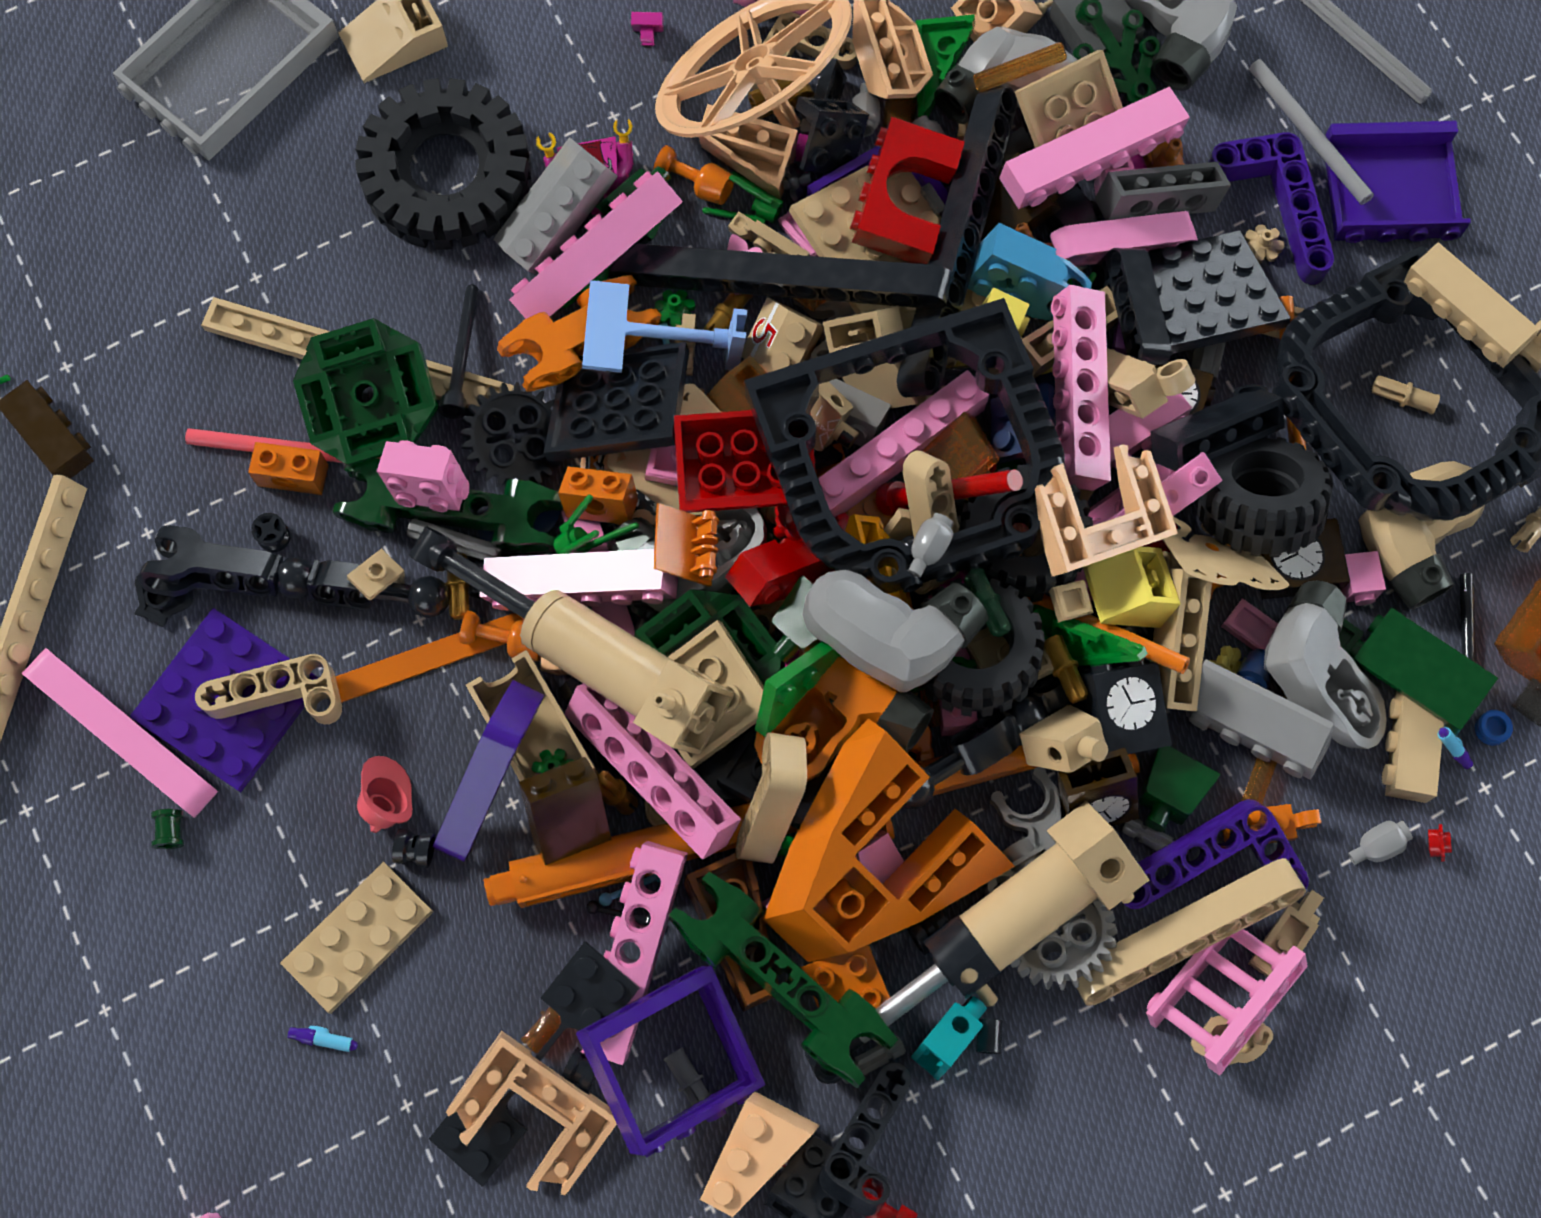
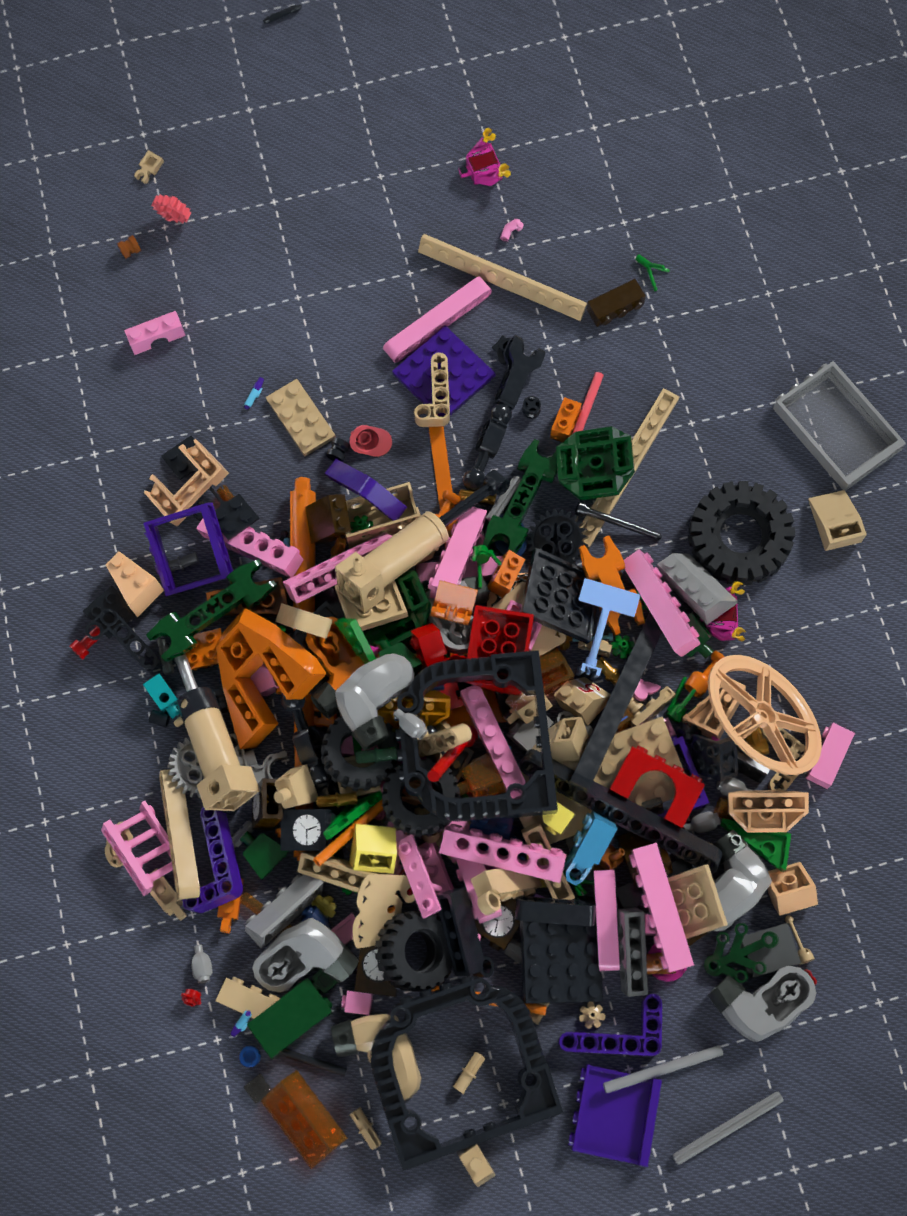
camera: 105 degrees right, 0 degrees up
(167, 829) = (379, 335): dark green bush -> none
(376, 574) = (489, 453): tan bracket -> none
(423, 476) = (533, 480): bright pink brick -> none
(647, 24) = (816, 668): dark pink tile -> none
(1020, 67) = (729, 877): clear orange axle -> none
(1071, 601) = (373, 811): tan tile -> none
(1145, 518) = (403, 861): light nougat wedge -> none
(1470, 305) = (507, 1118): tan brick -> none

